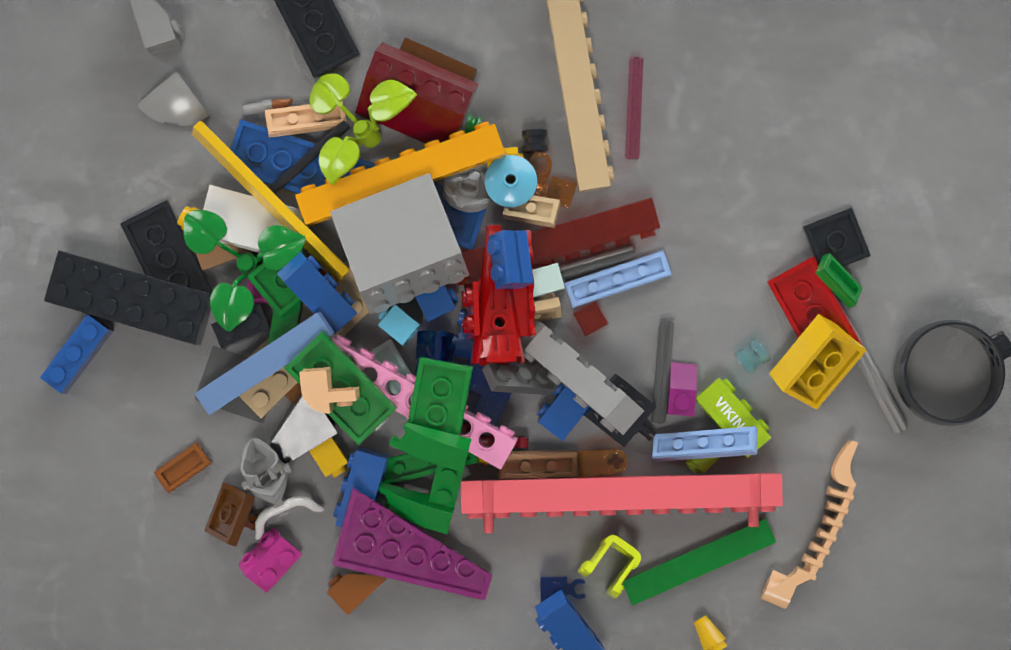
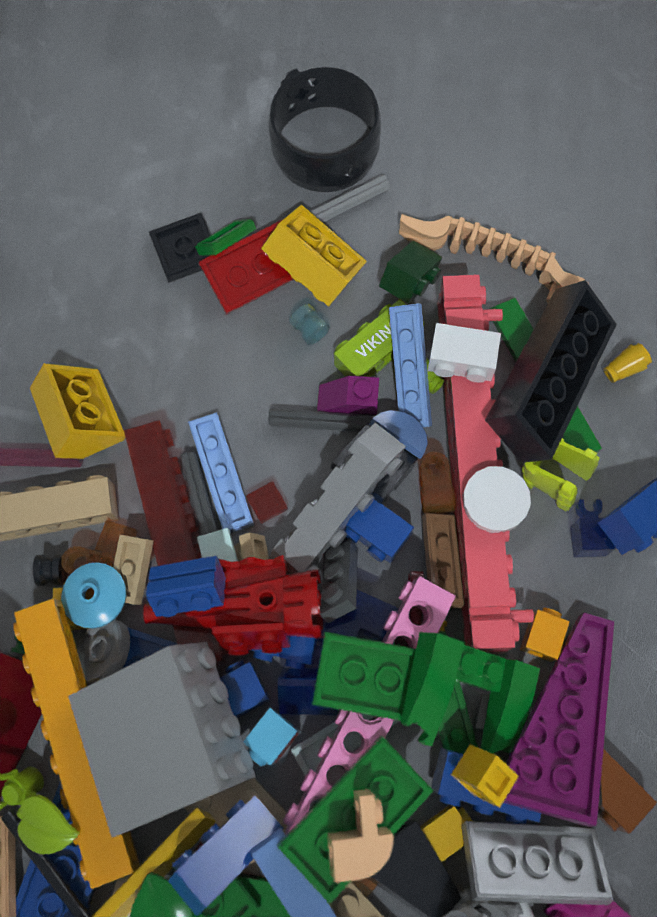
camera: 80 degrees left, 15 degrees down
(307, 520) = (535, 864): none -> light grey tile
(368, 483) = (484, 775): none -> yellow brick
(475, 543) = (545, 634): none -> light orange brick
(578, 506) = (496, 499): none -> white tile
(647, 436) = (404, 429): none -> medium blue tile
(672, 154) = (75, 411): none -> yellow slope
(693, 564) = (552, 373): none -> black brick
(701, 486) = (464, 352): none -> white brick
(798, 448) = (411, 272): none -> dark green brick

